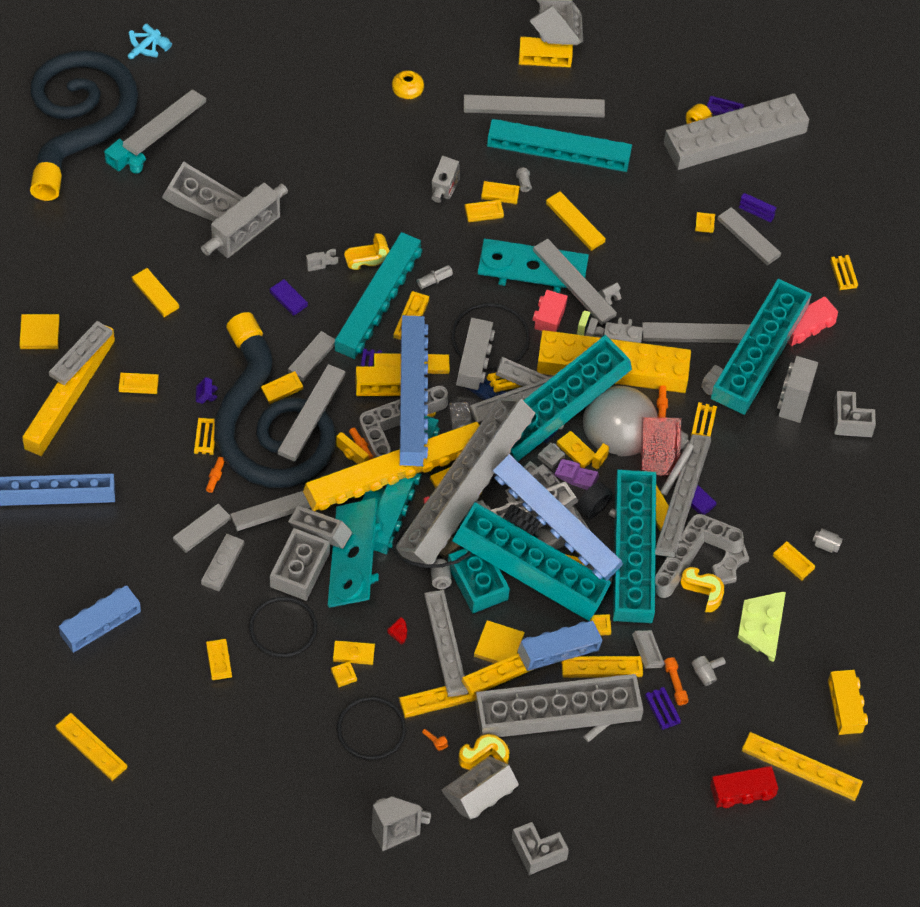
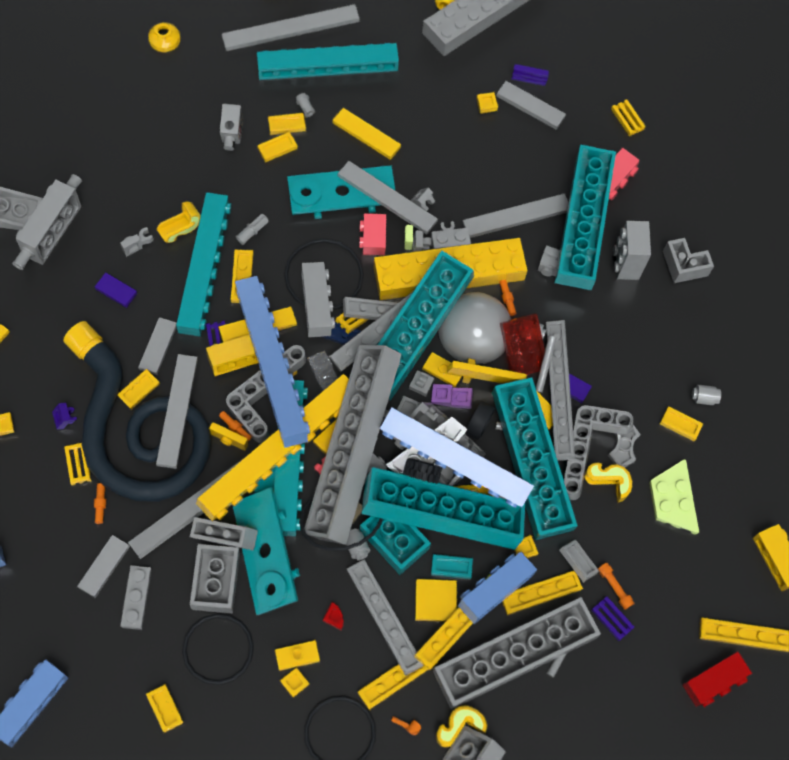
camera: 20 degrees left, 10 degrees up
(524, 620) = (451, 566): none -> teal tile
(609, 456) = (484, 373): none -> yellow tile
(704, 669) = (638, 565): light grey piece -> none
(706, 409) = (550, 290): yellow tile -> none

